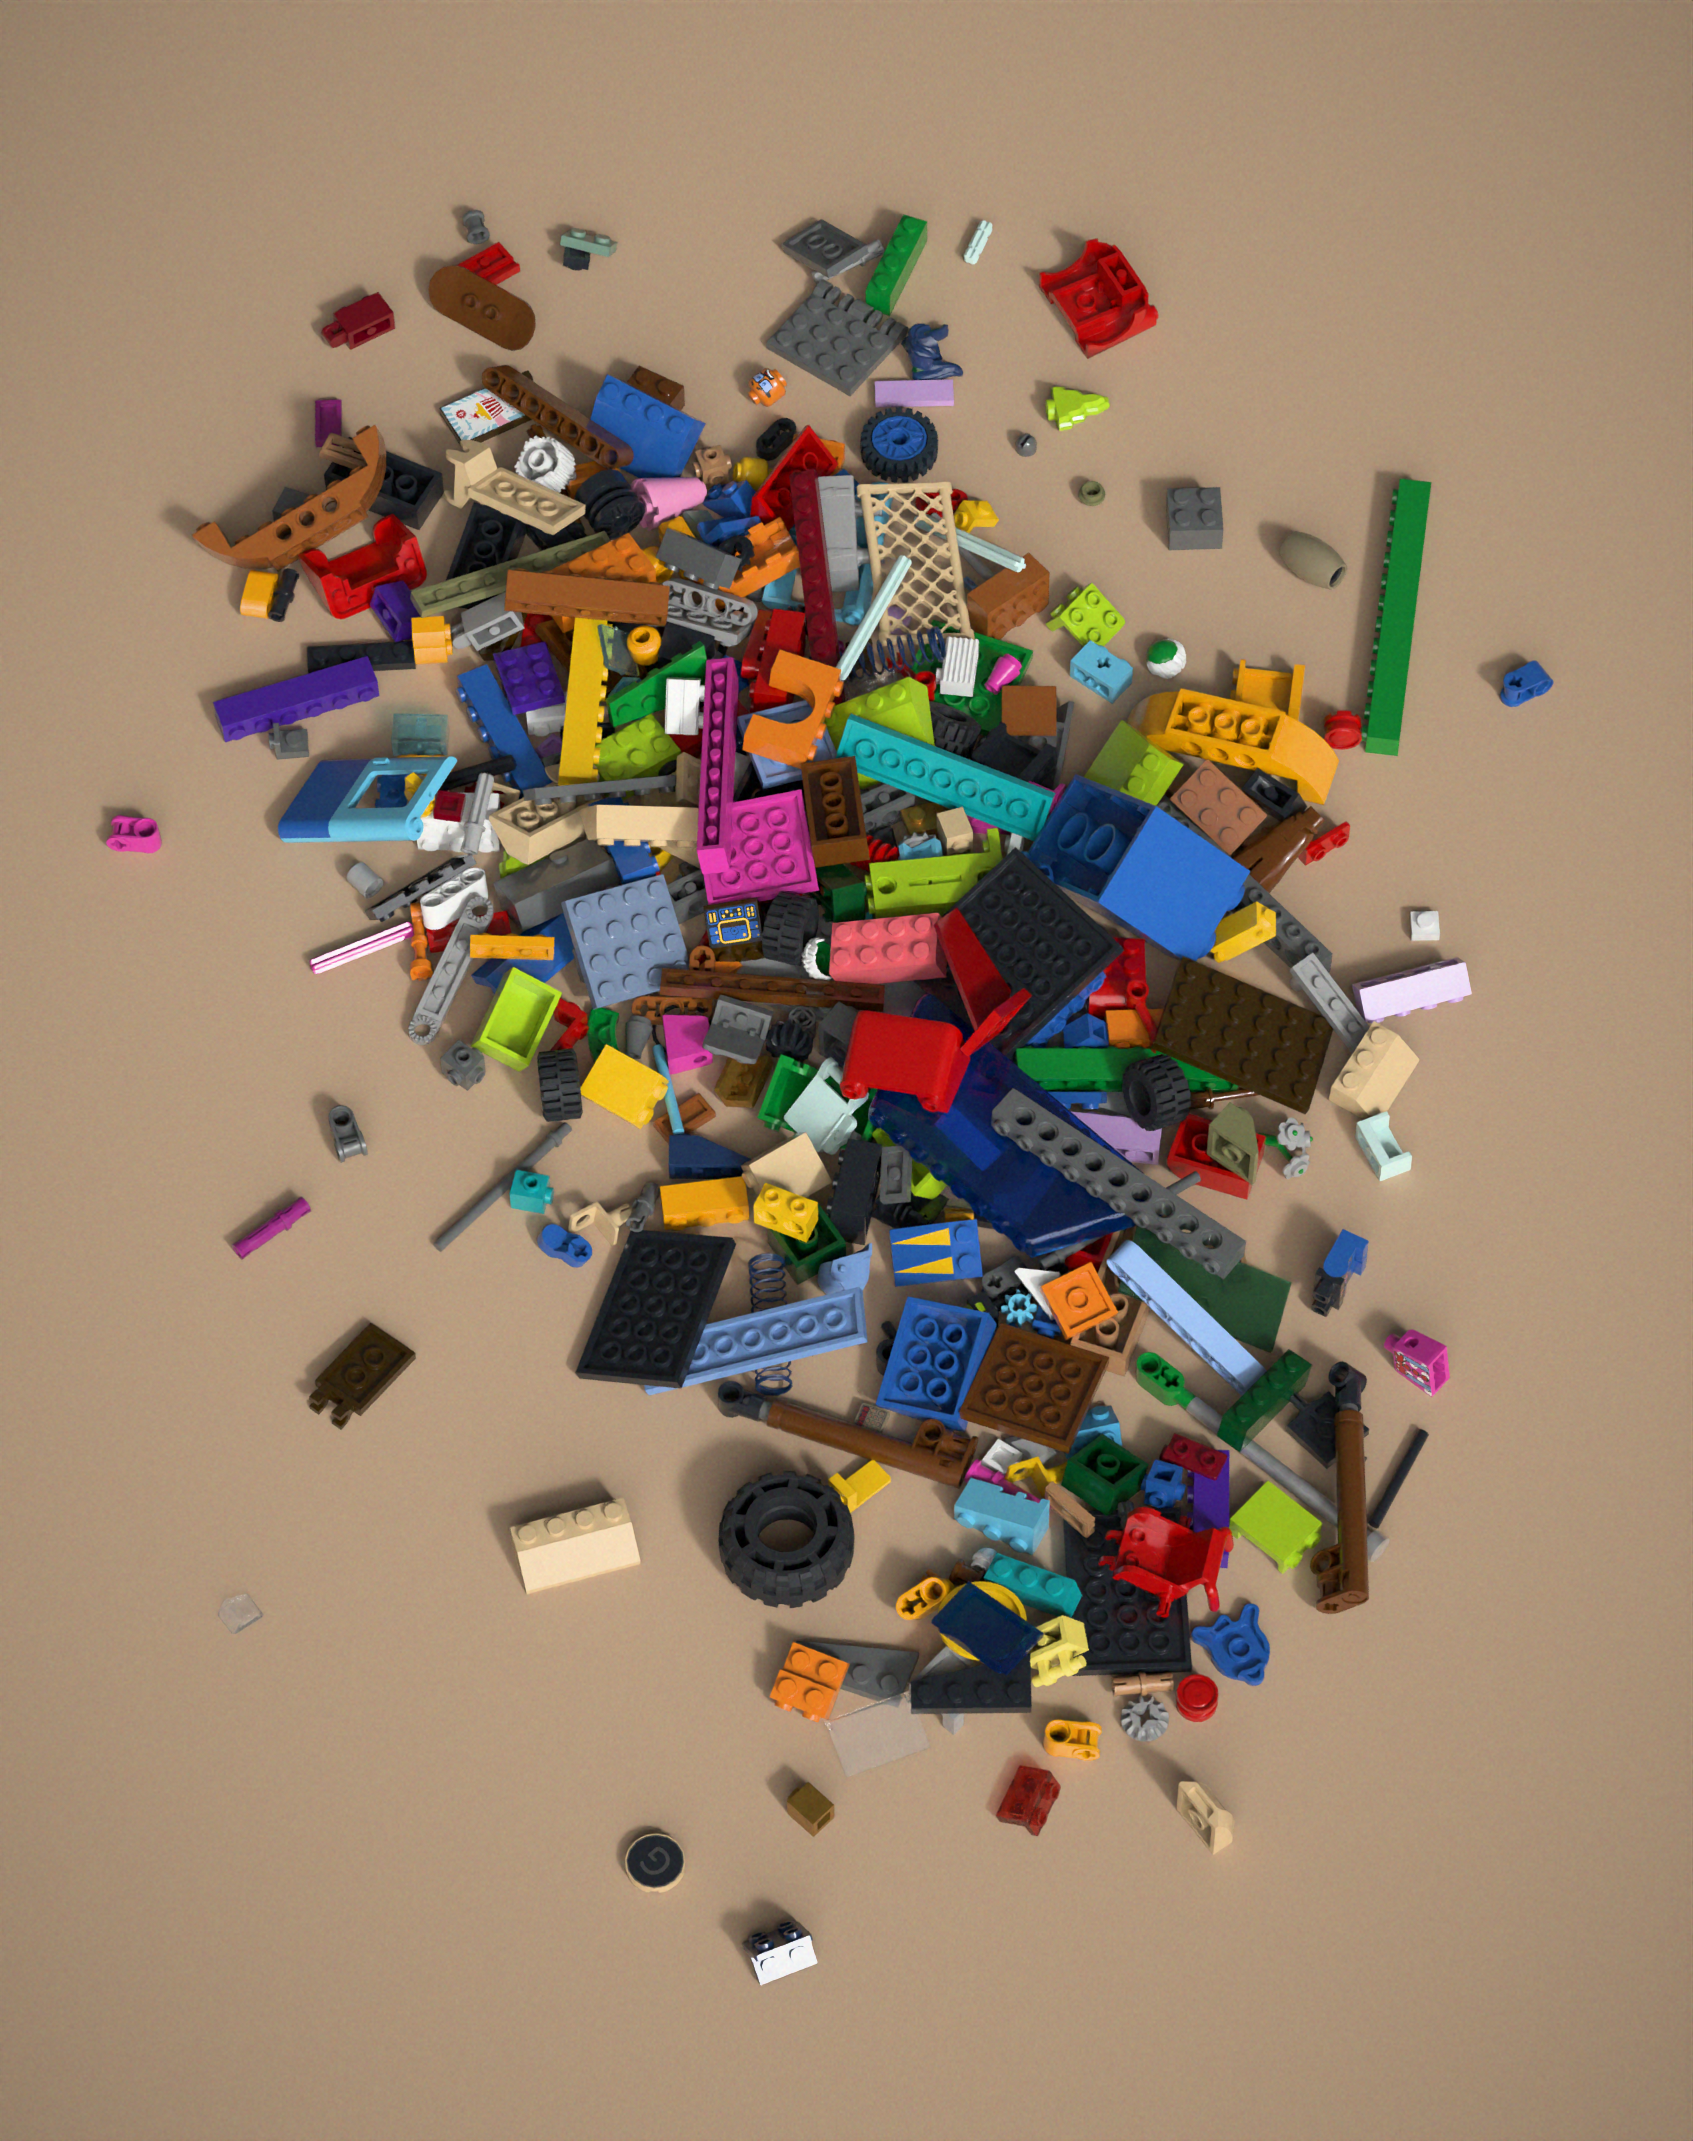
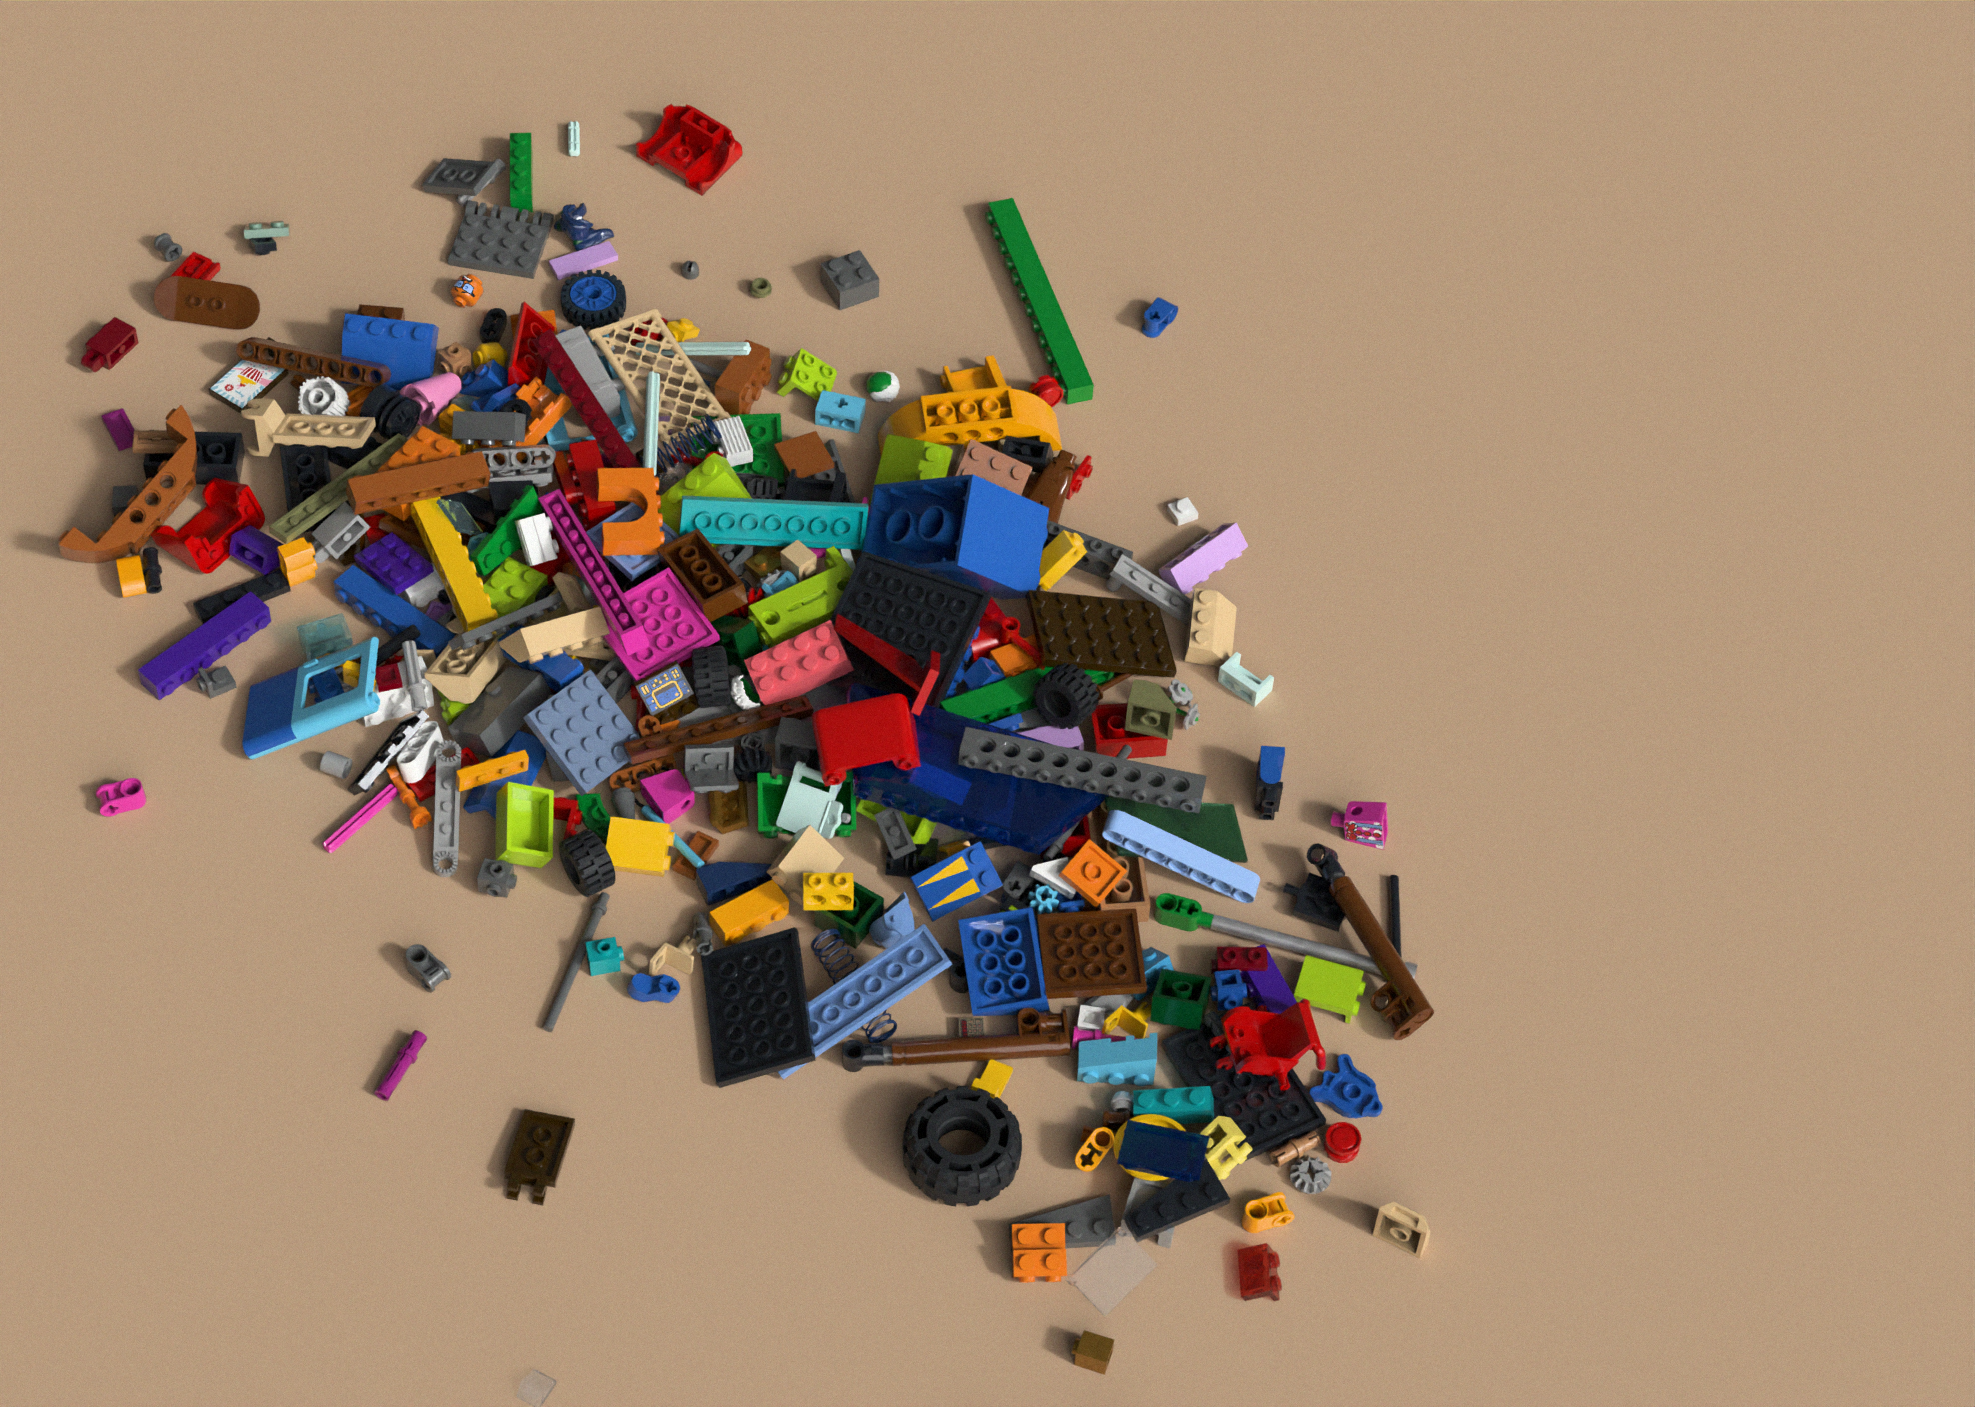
camera: 30 degrees left, 5 degrees down
(575, 1545) = (789, 1220): slope -> none
(644, 645) = (478, 505): light orange head -> none
(855, 1190) = (867, 854): black brick -> none
(1003, 673) = (769, 434): dark pink cone -> none
(1069, 1509) = (1170, 1035): medium nougat tile -> none
(1073, 407) = (711, 231): lime rock -> none
(1264, 1400) = (1269, 896): dark green brick -> none
(1313, 560) = (956, 280): dark tan piece -> none

